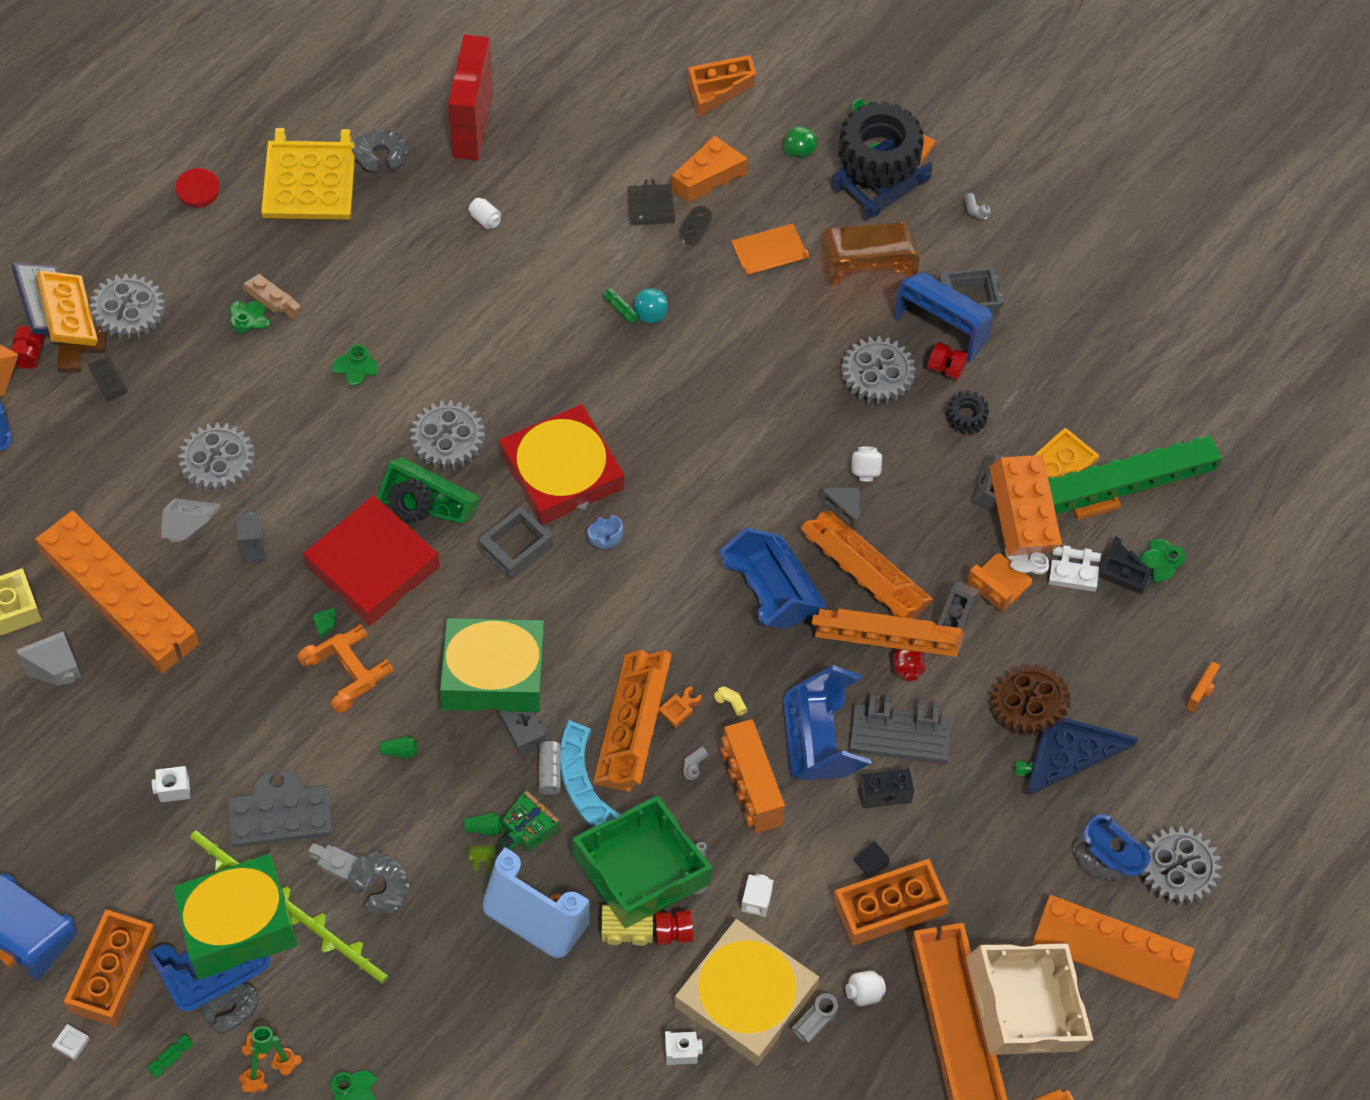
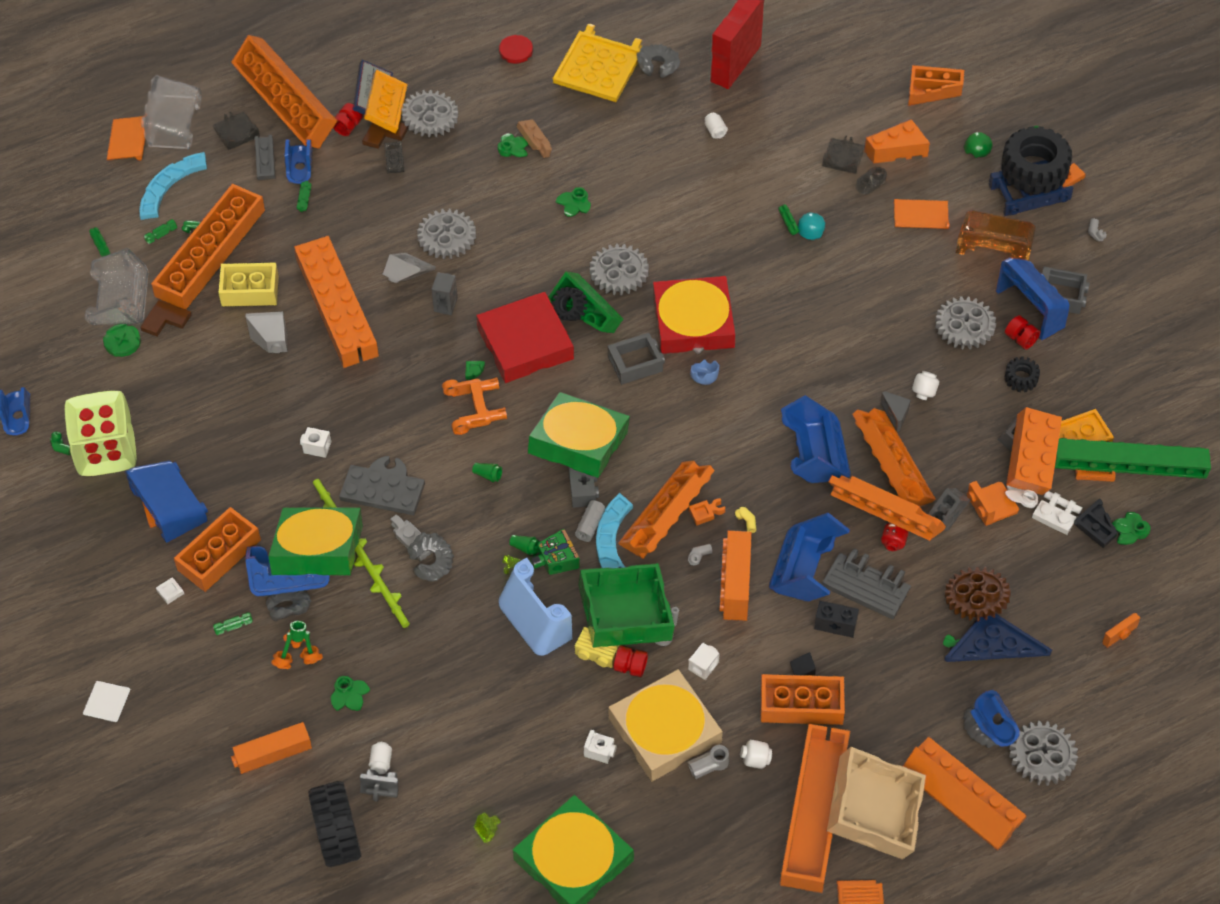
camera: 25 degrees right, 5 degrees down
(14, 465) = (304, 194): none -> green axle

